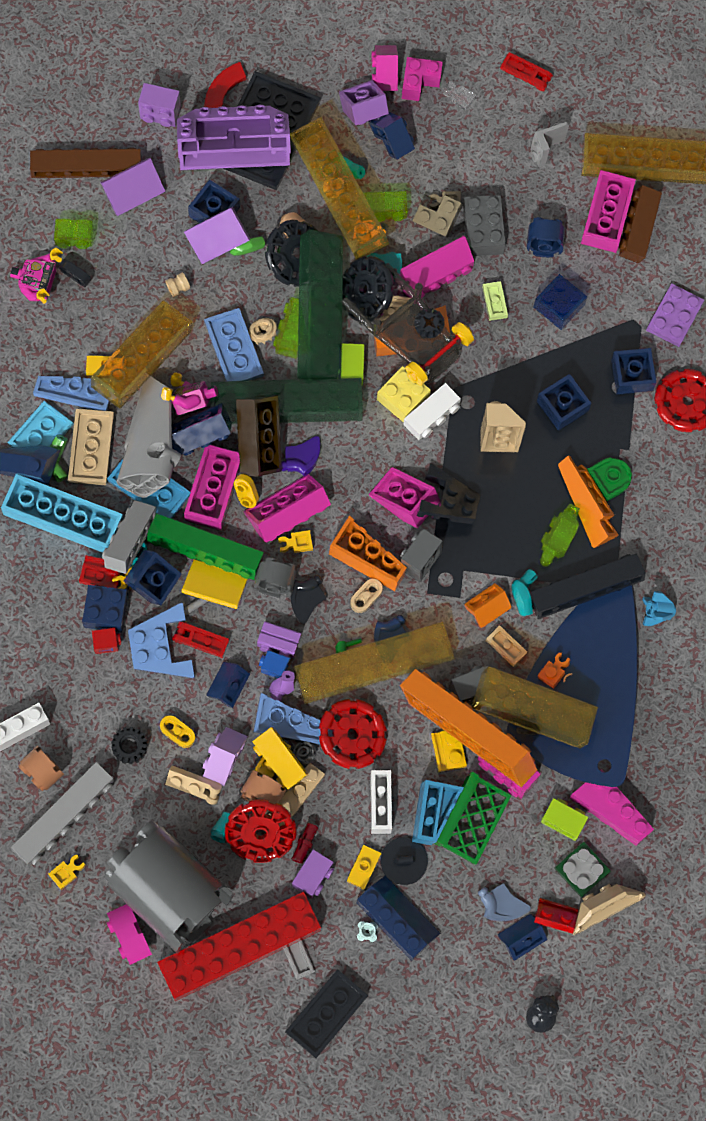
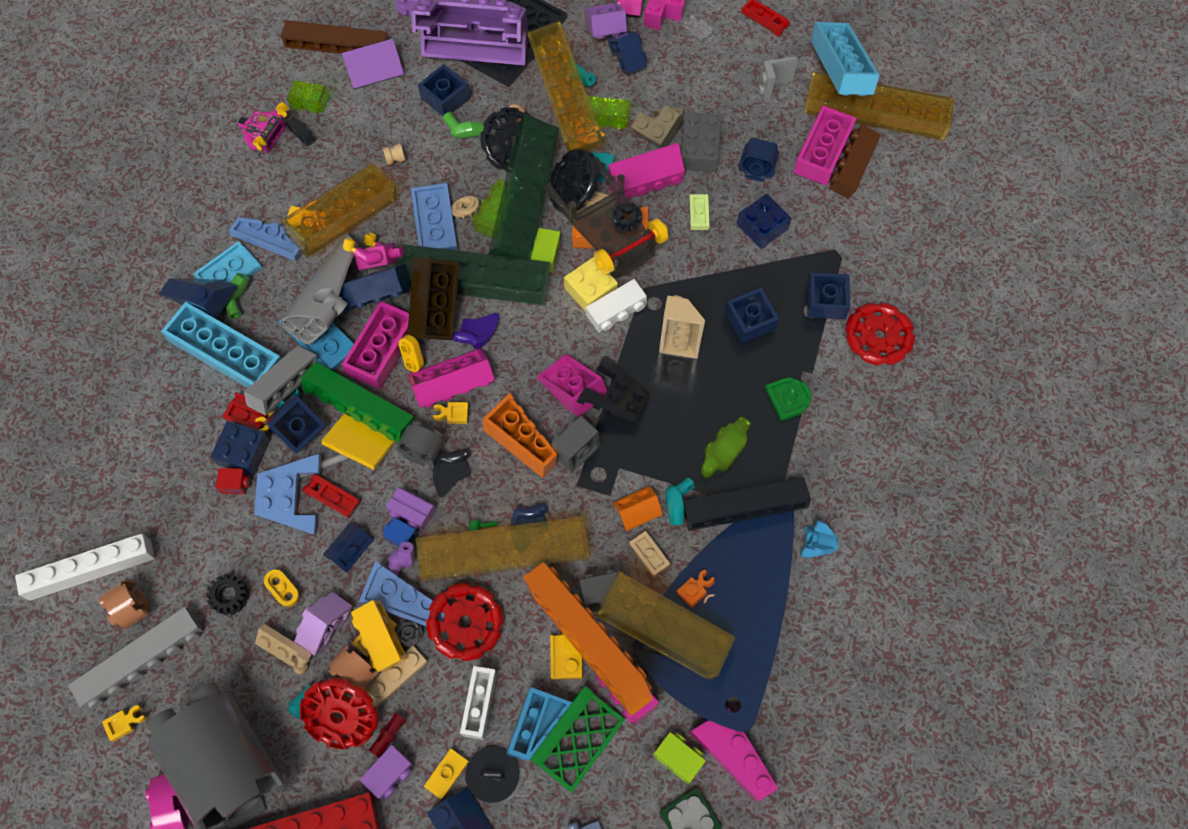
camera: 15 degrees right, 5 degrees down
(91, 447) = (271, 290): tan plate -> none
(217, 235) = (439, 113): tile -> none
(366, 596) = (511, 478): tan plate -> none
(587, 497) = (765, 423): orange wedge -> none
(614, 115) = (844, 58): none -> medium azure brick
(675, 315) = (878, 251): medium lavender plate -> none

